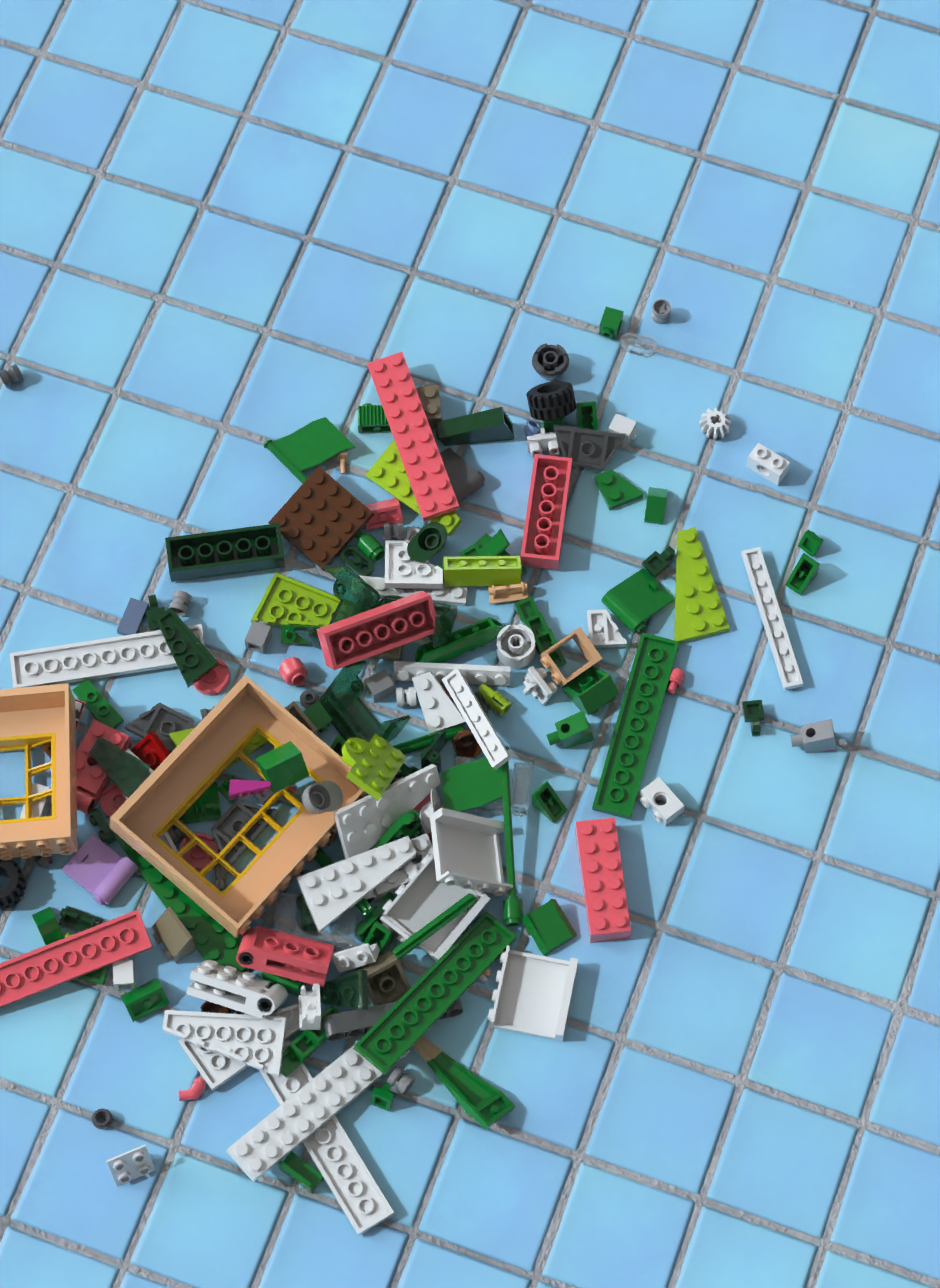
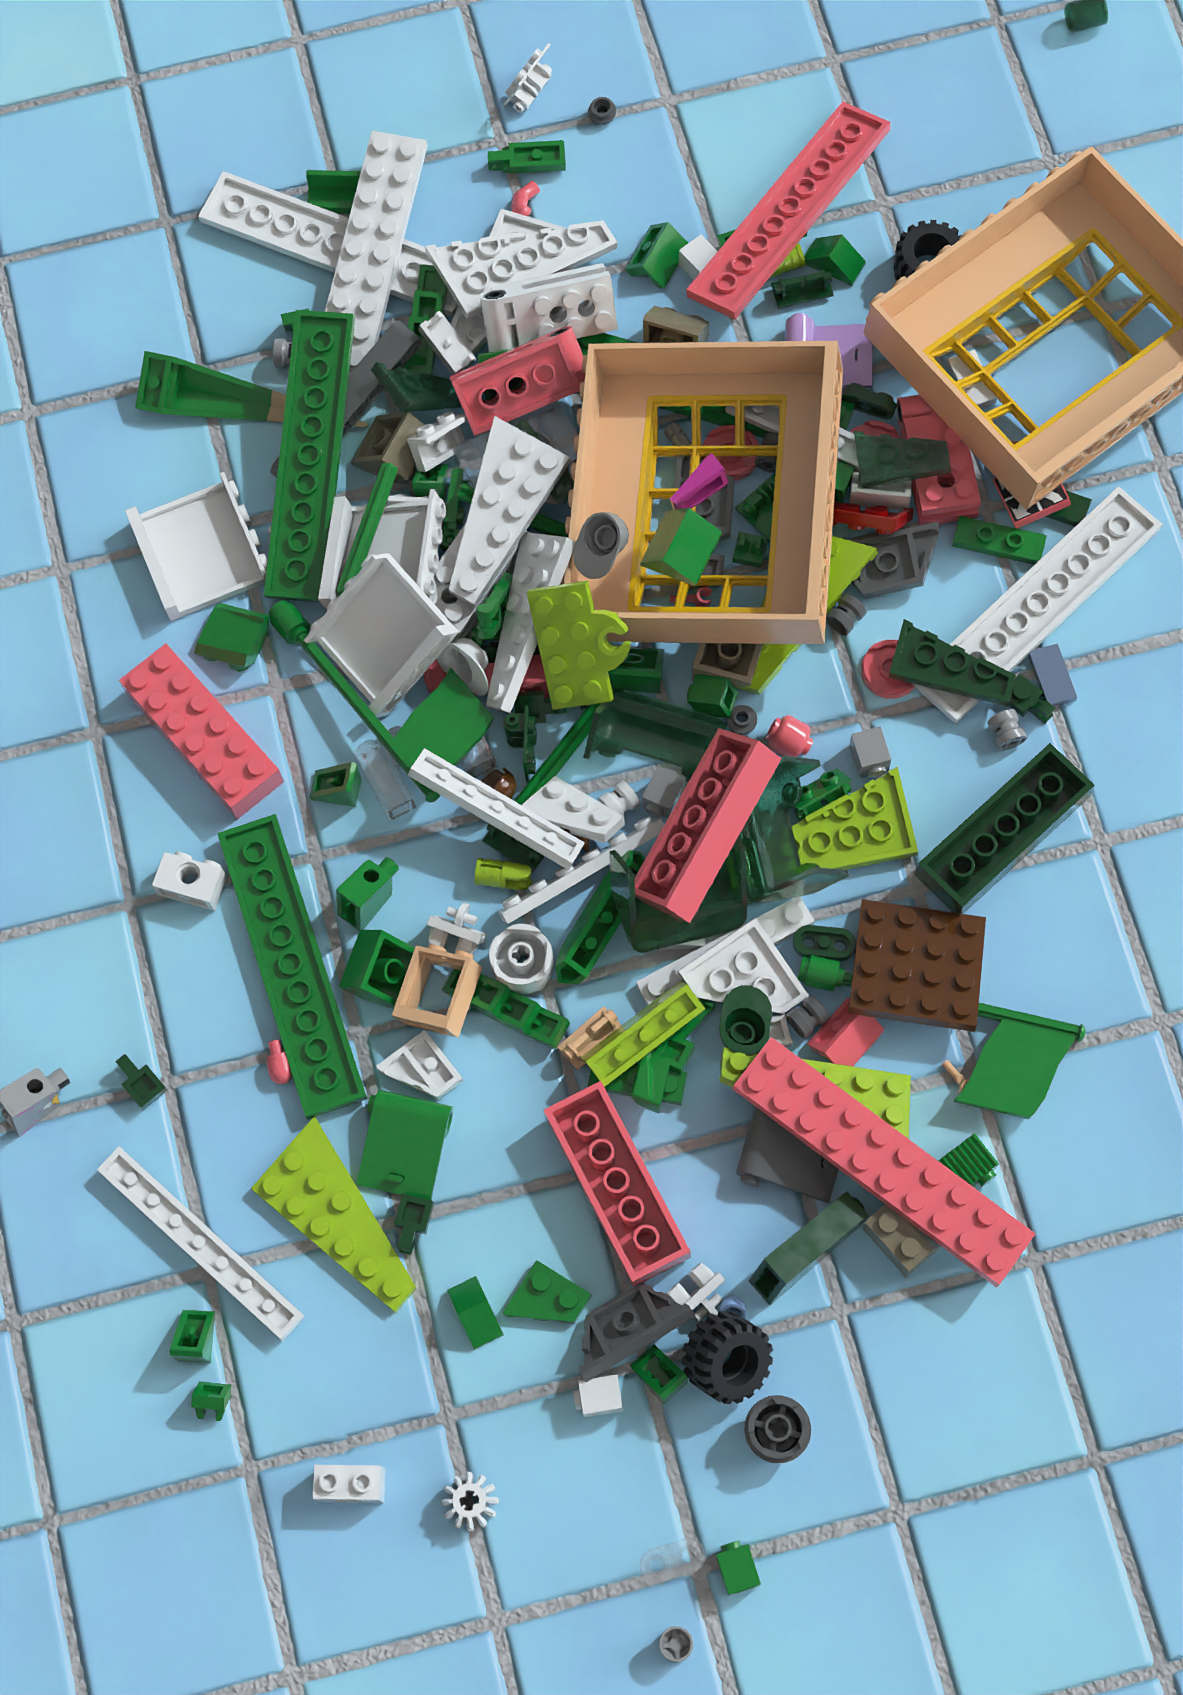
camera: 150 degrees right, 5 degrees up
(168, 1115) = (529, 157): none -> green hinge

